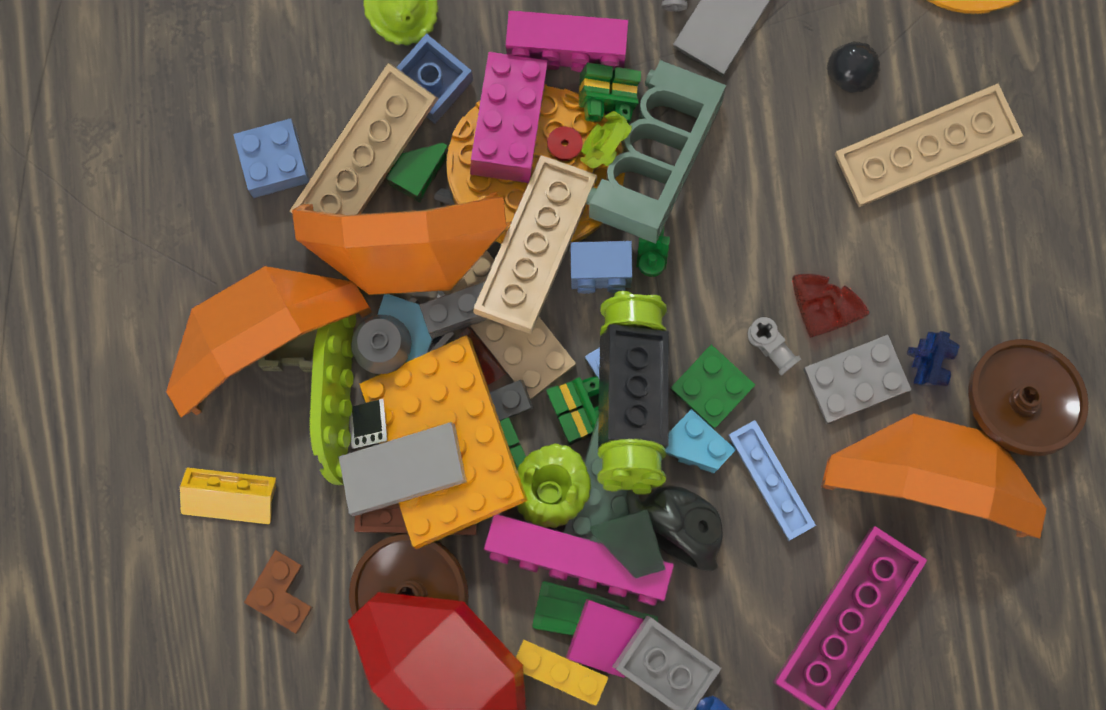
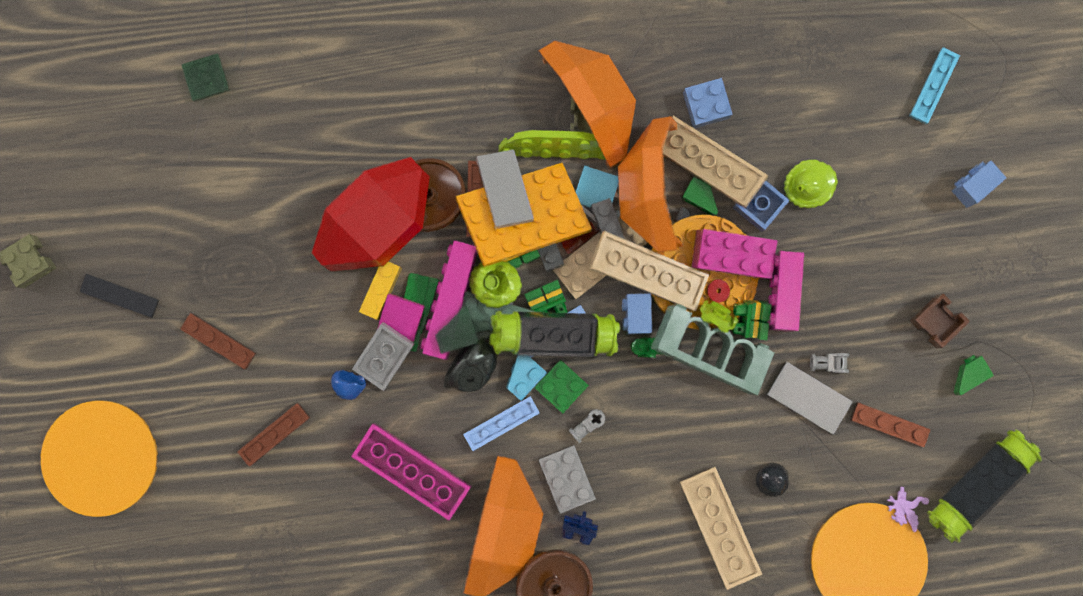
camera: 85 degrees right, 5 degrees up
(227, 495) = (491, 81): yellow panel -> none
(271, 595) = (427, 111): dark orange plate -> none
(368, 424) = (535, 167): black sticker -> none
(381, 344) = (586, 175): dark grey cone -> none
(825, 305) = (614, 459): clear red brick -> none

